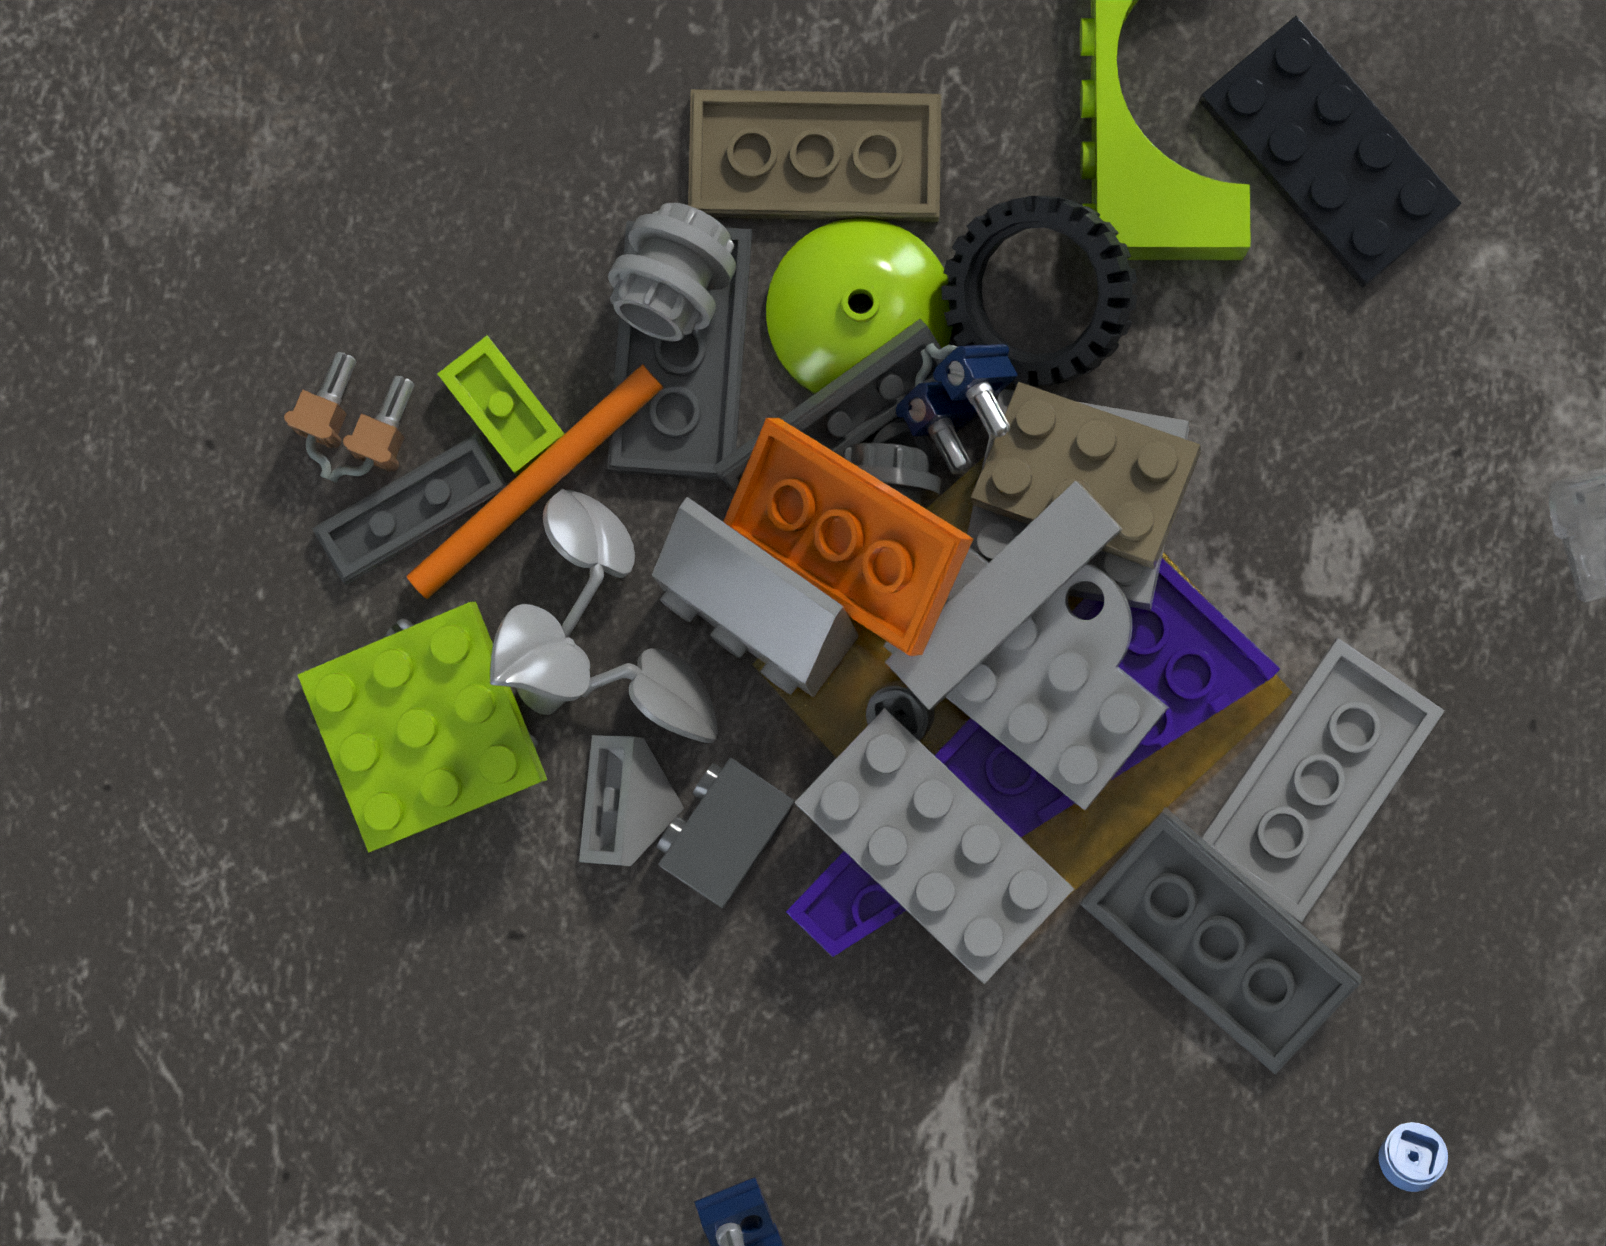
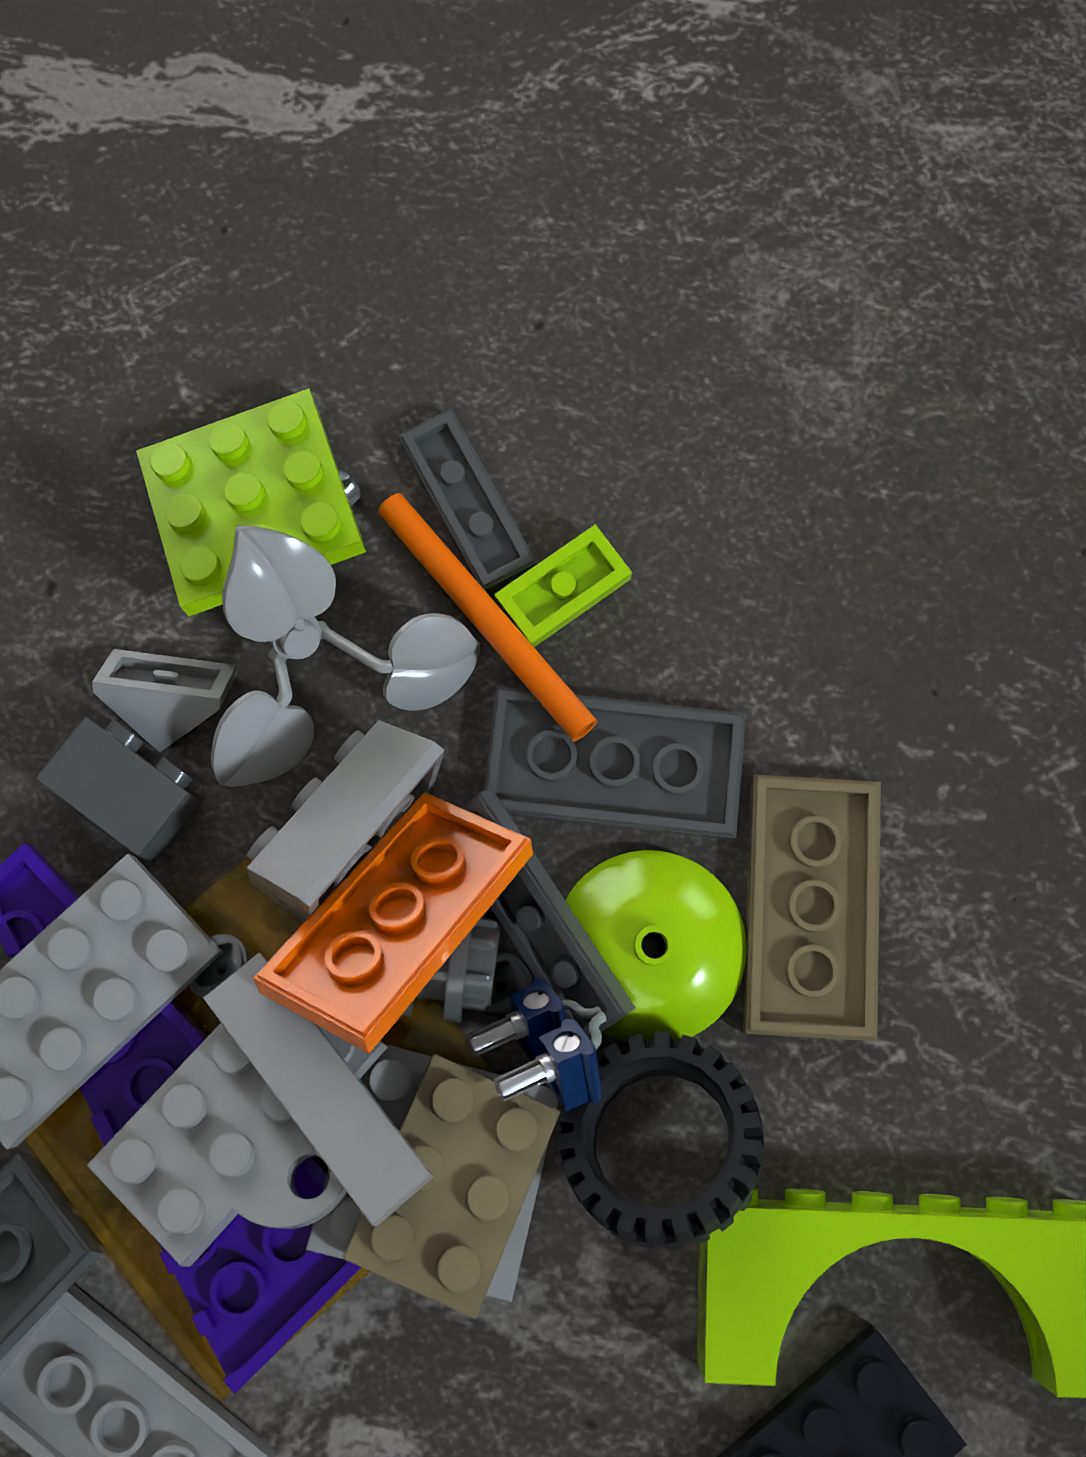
camera: 85 degrees right, 5 degrees down
(373, 439) = (556, 420): piece -> none
(676, 262) = (698, 755): light grey piece -> none

